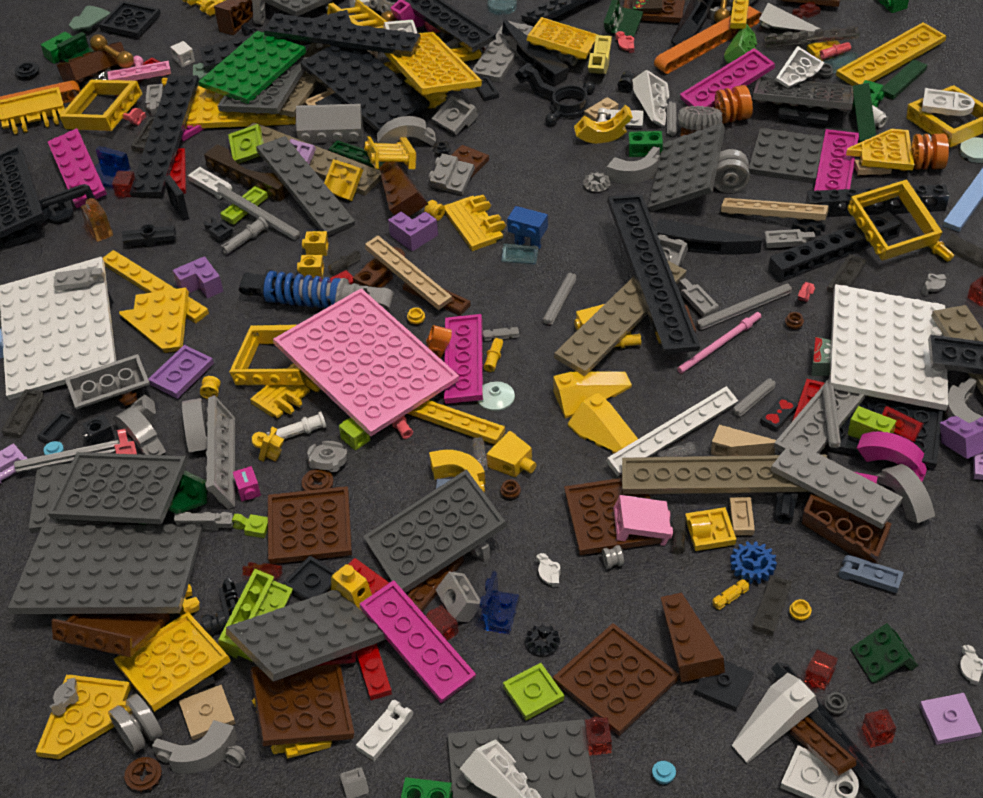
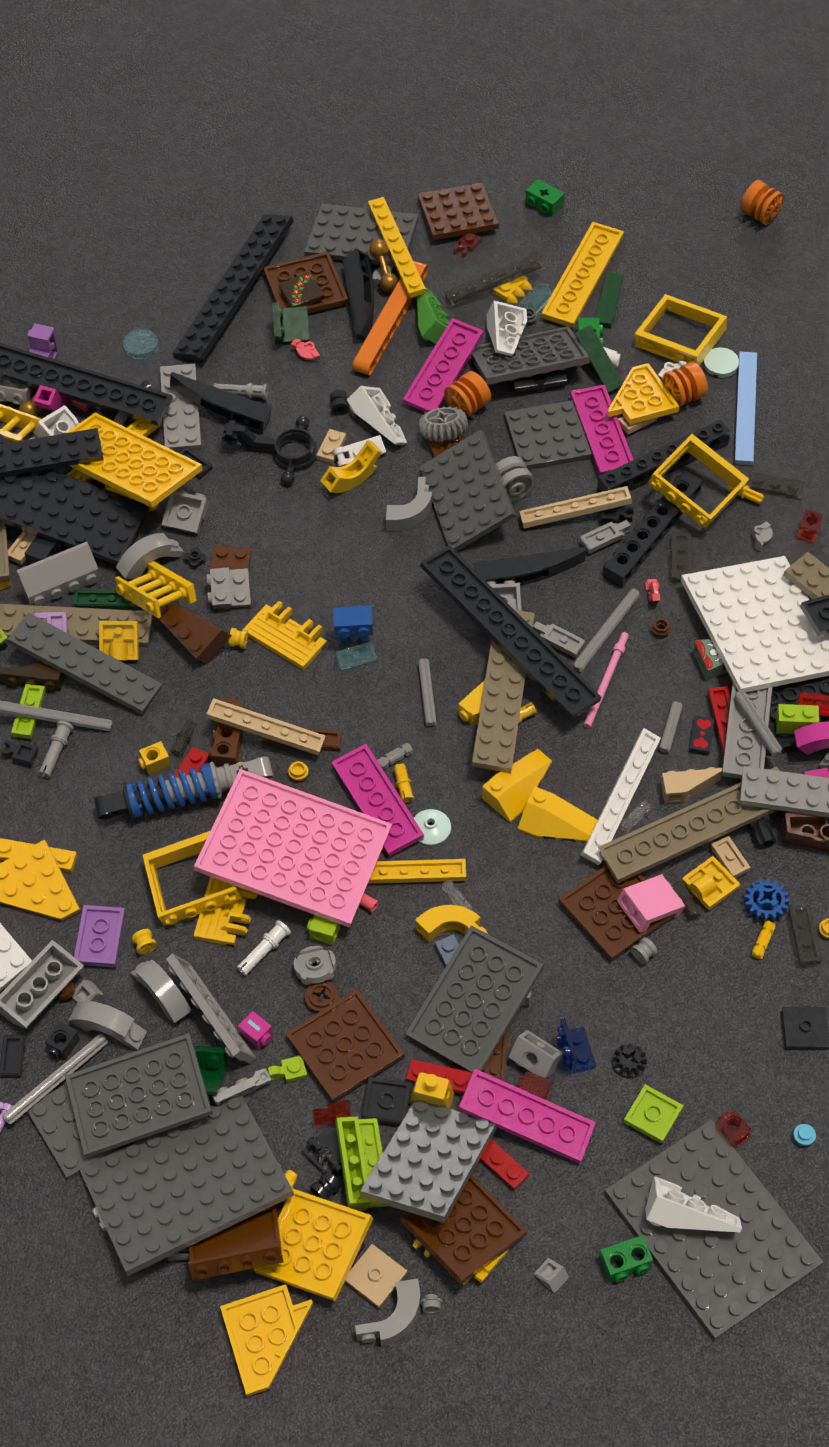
camera: 30 degrees left, 10 degrees up
(53, 447) = (27, 1081): medium azure plate -> none
(63, 696) = (237, 1328): light grey piece -> none
(124, 447) = (106, 1048): coral plate -> none
(135, 723) = (326, 1321): light grey wheel -> none
(137, 767) = (362, 1353): reddish brown gear -> none
(198, 275) = (43, 816): medium lavender brick -> none
(269, 445) = (253, 979): yellow hips -> none
(316, 243) = (140, 721): yellow brick -> none
(384, 730) = (546, 1214): white plate -> none
(413, 232) = (231, 675): medium lavender brick -> none
(438, 339) = (345, 791): orange piece -> none
(510, 485) = (509, 917): reddish brown plate -> none
(511, 456) = (490, 887): yellow torso -> none
(548, 570) = (594, 989): white piece -> none
(562, 38) = (244, 372): yellow plate -> none
(592, 185) = (381, 544): light grey gear -> none
(600, 58) = (296, 387): light yellow arch -> none
(616, 678) = (715, 1067): reddish brown plate -> none
(643, 141) = (403, 474): green brick -> none
(671, 119) = (410, 432): light grey axle -> none
(691, 644) = (761, 1005): reddish brown wedge -> none
(782, 20) = (448, 267): white wedge -> none
(835, 50) = (526, 288): coral axle -> none
(947, 102) = (673, 321): white plate -> none

